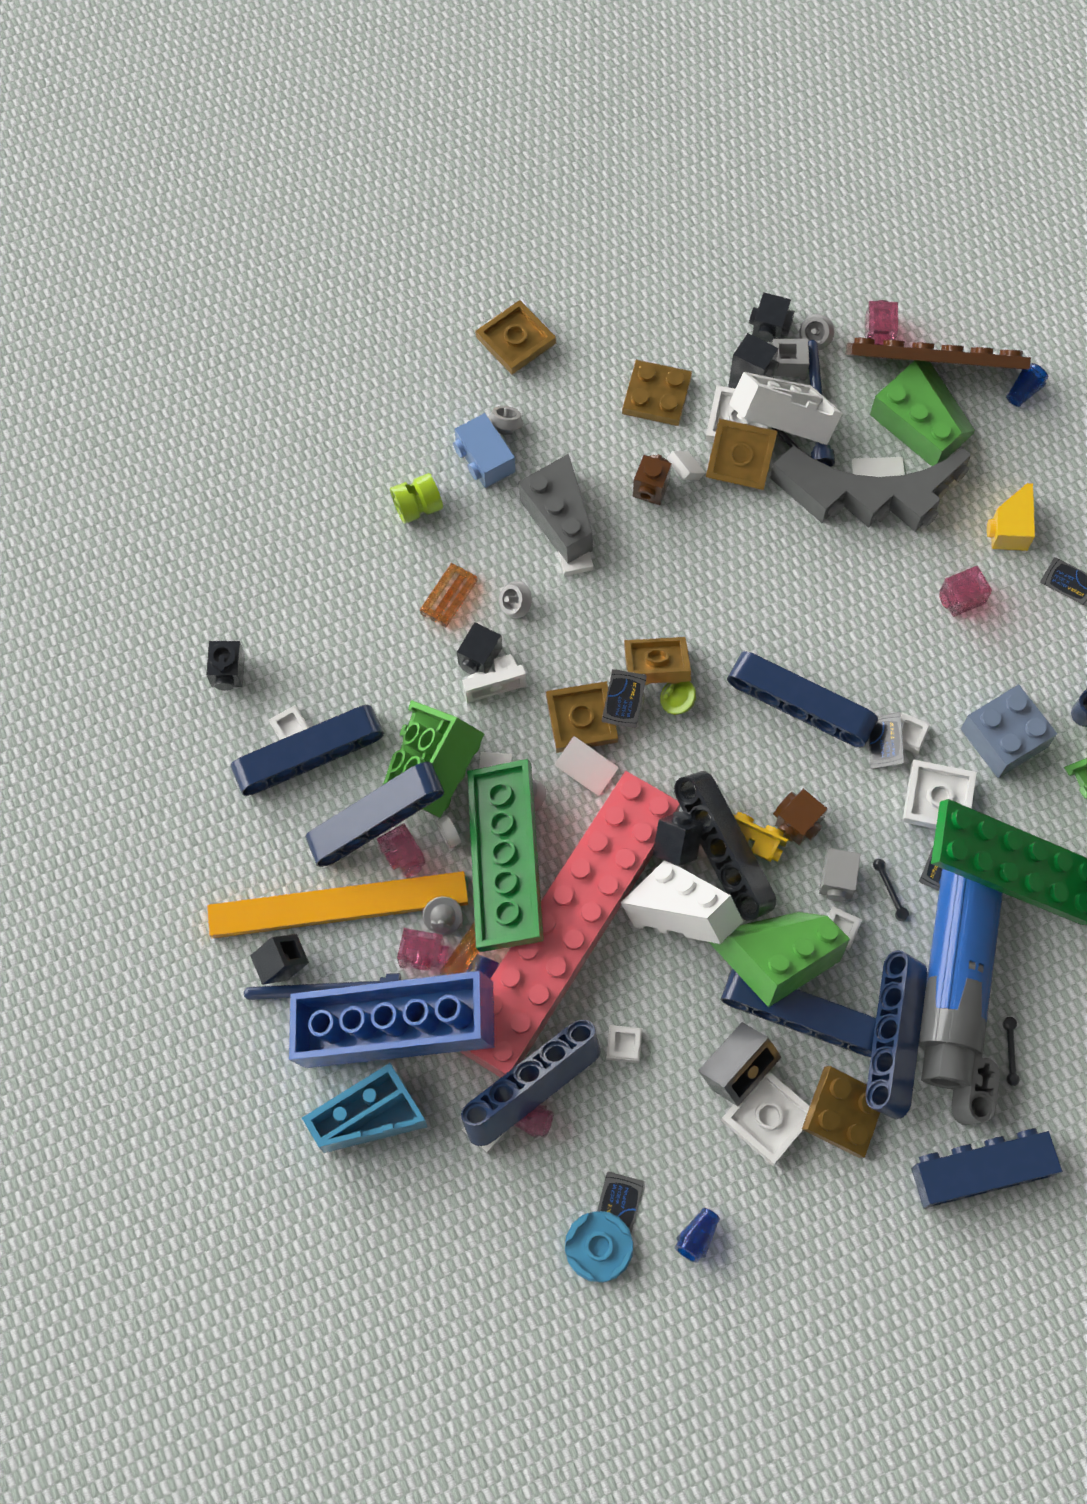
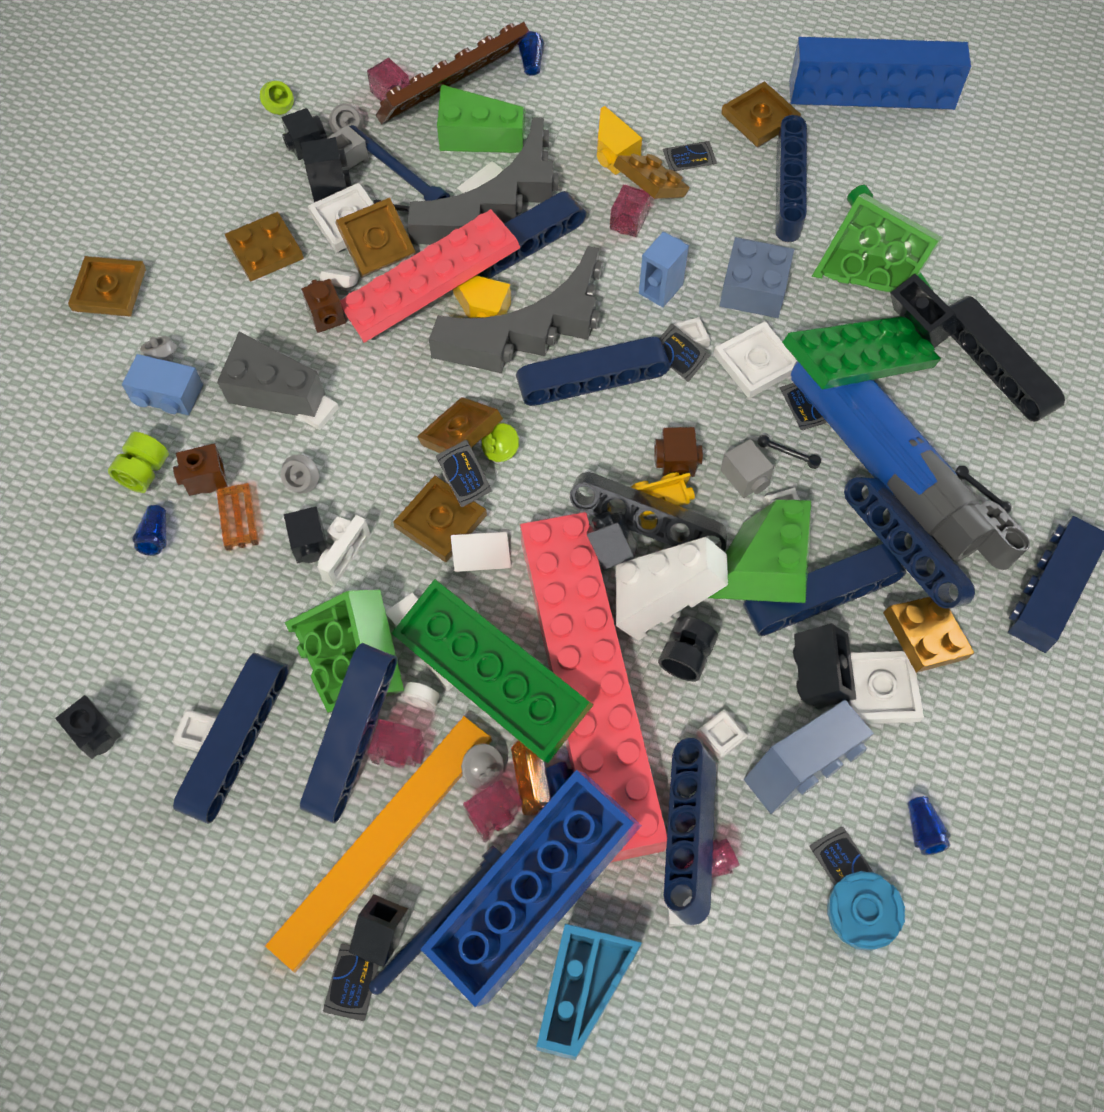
camera: 45 degrees left, 5 degrees down
(234, 978) = (349, 986): none -> black sticker
(382, 557) = (151, 531): none -> clear blue cone
(451, 540) = (200, 470): none -> reddish brown brick
(646, 964) = (688, 648): none -> black wheel
(665, 1112) = (807, 755): none -> sand blue wedge
(750, 519) = (428, 275): none -> coral plate
(775, 572) = (483, 297): none -> yellow slope
(782, 268) = (276, 97): none -> lime hat
(785, 406) = (379, 176): white wedge -> none
(790, 628) = (491, 340): none -> dark grey arch
(855, 543) = (540, 228): none -> dark blue beam
(935, 663) = (663, 269): none -> medium blue brick
(1010, 576) = (652, 176): none -> pearl gold plate

